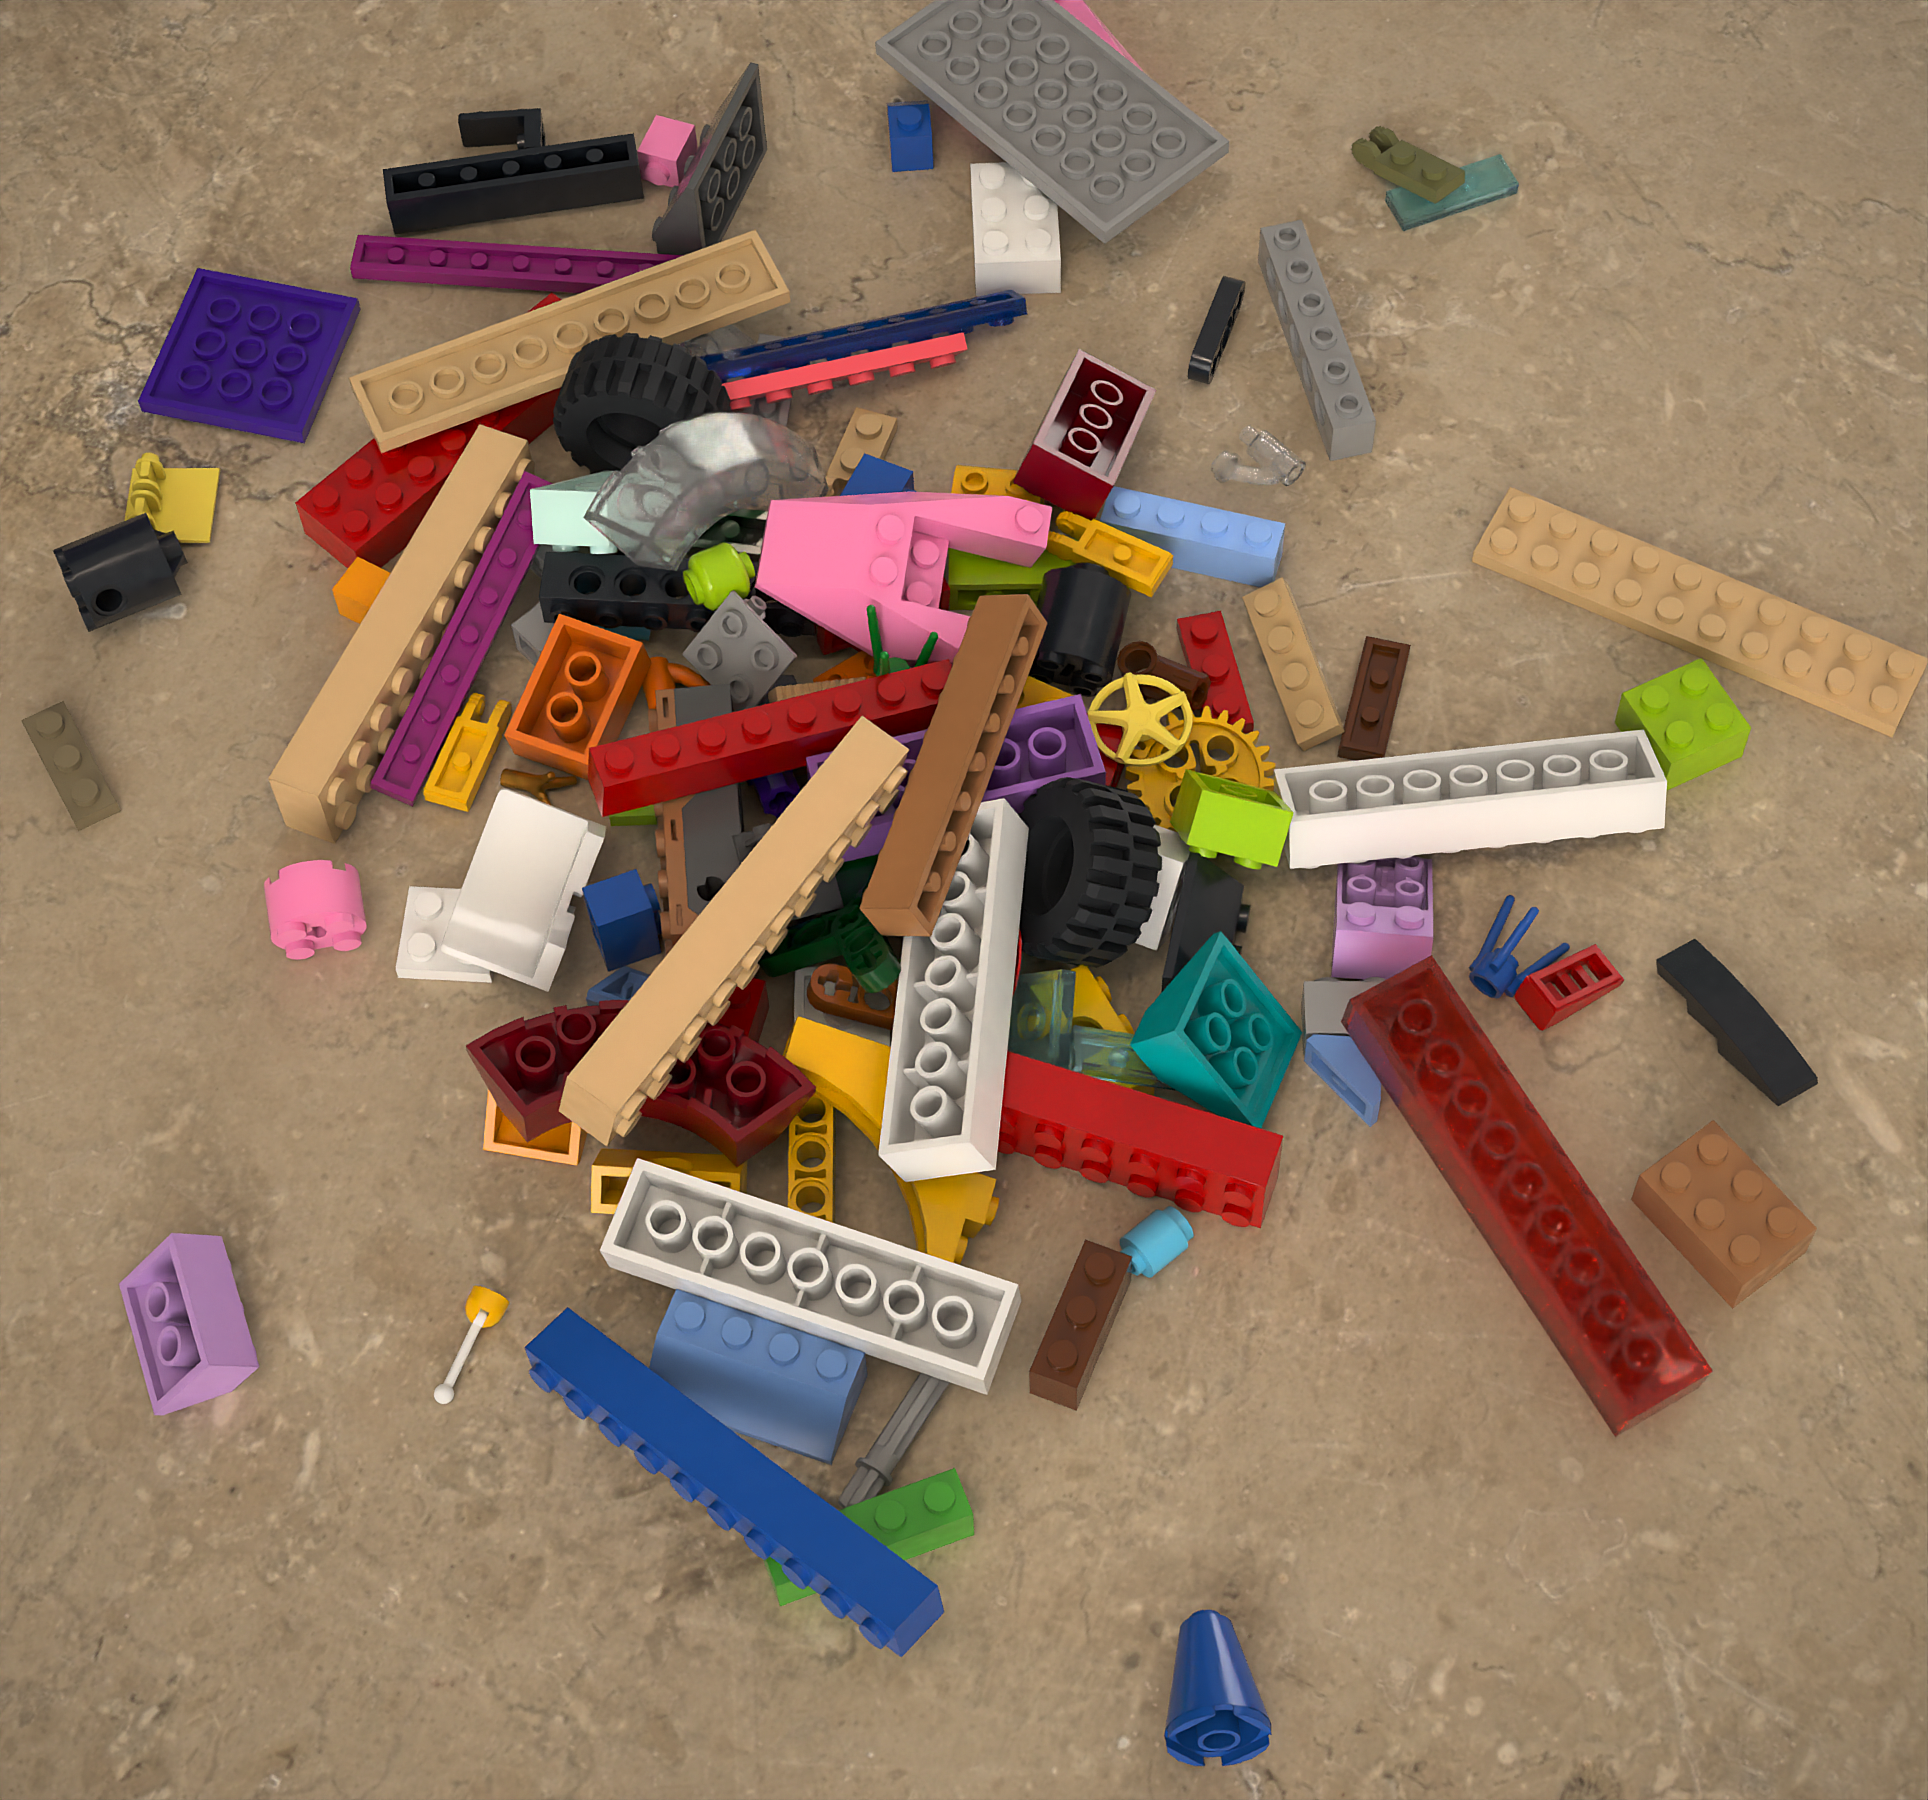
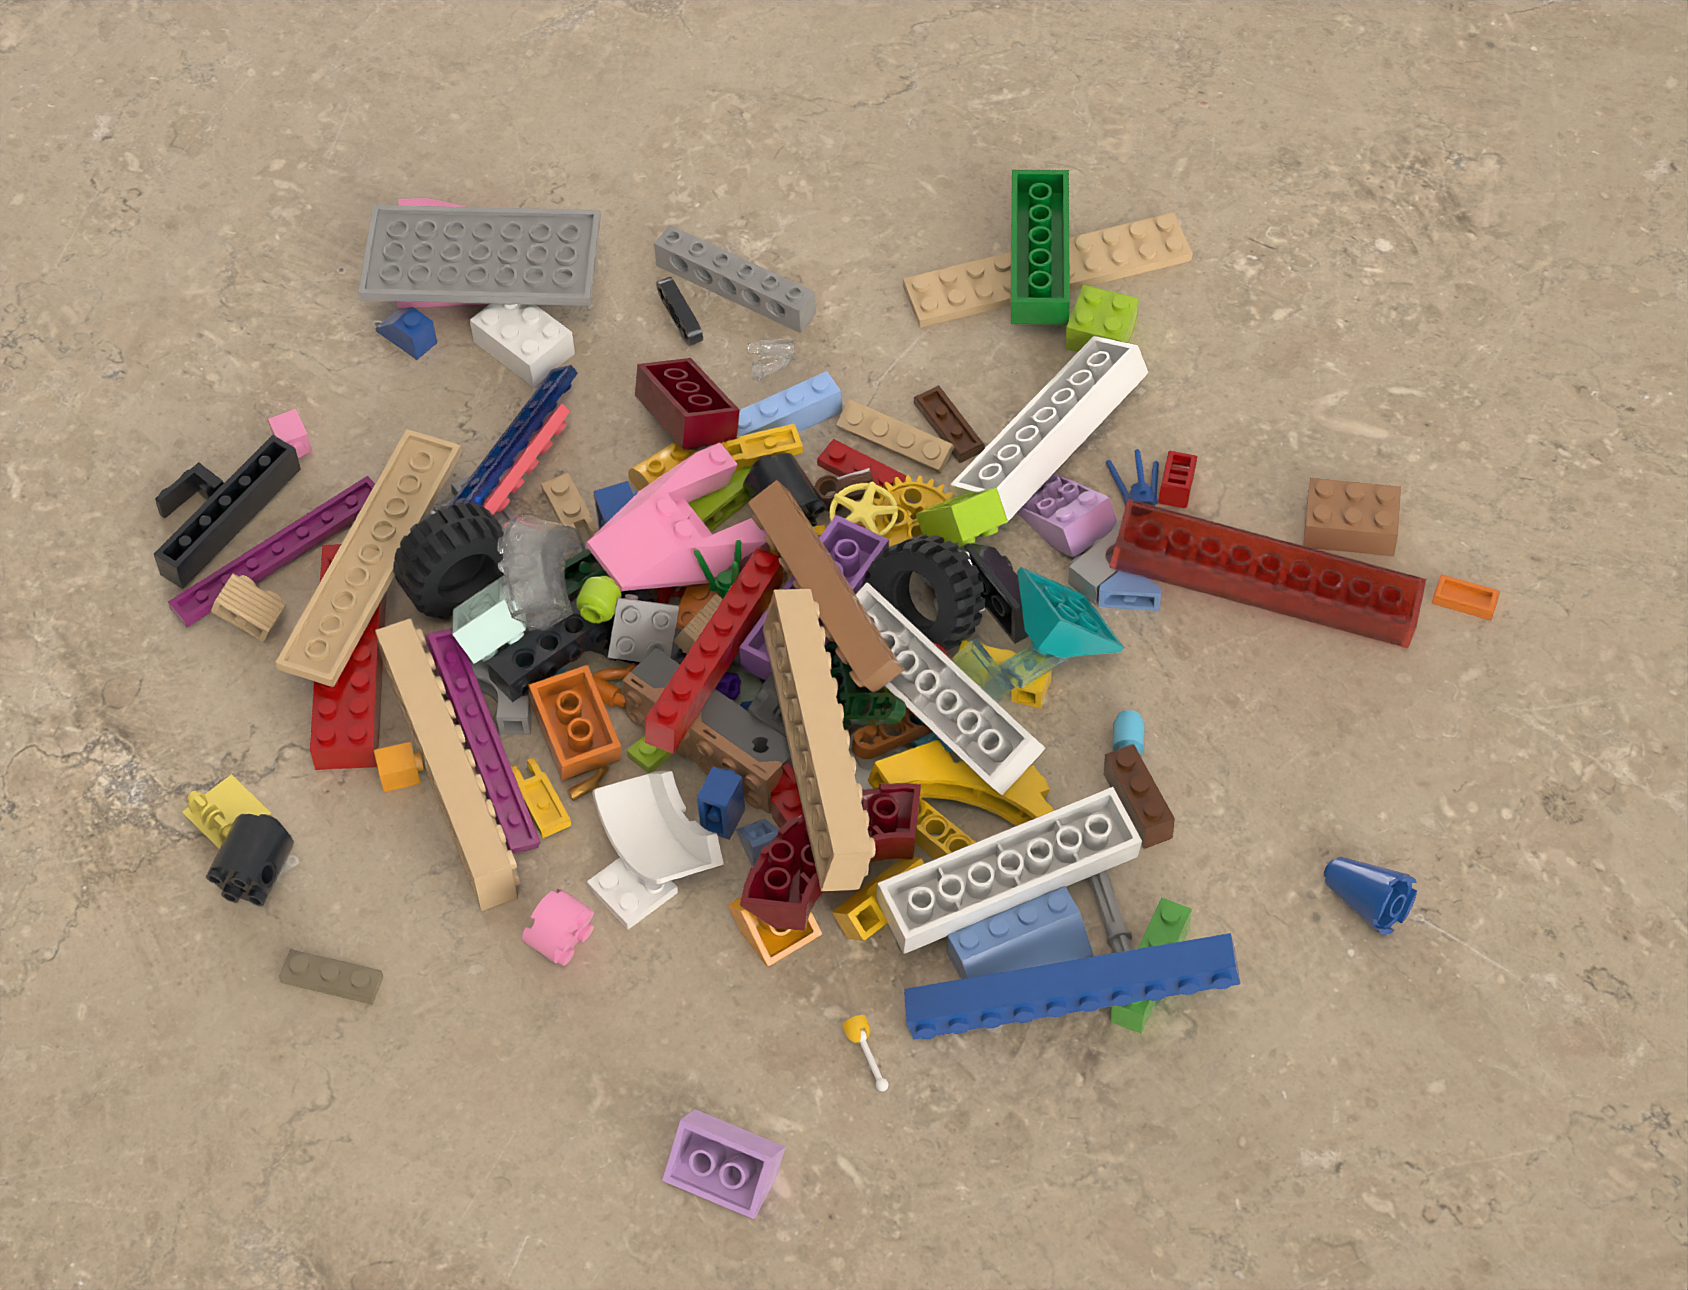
camera: 45 degrees left, 5 degrees down
(250, 355) = (179, 706): dark purple plate -> none
(419, 301) = (248, 606): none -> tan brick
(717, 173) = (334, 422): dark grey slope -> none
(1138, 1141) = (1087, 689): red brick -> none
(1407, 165) = (683, 164): olive hinge -> none
(1484, 183) = (715, 163): clear light blue tile -> none
(1695, 570) = (1040, 247): none -> green brick
(1738, 1022) = (1275, 433): black slope -> none
(1763, 1438) = (1466, 597): none -> orange tile

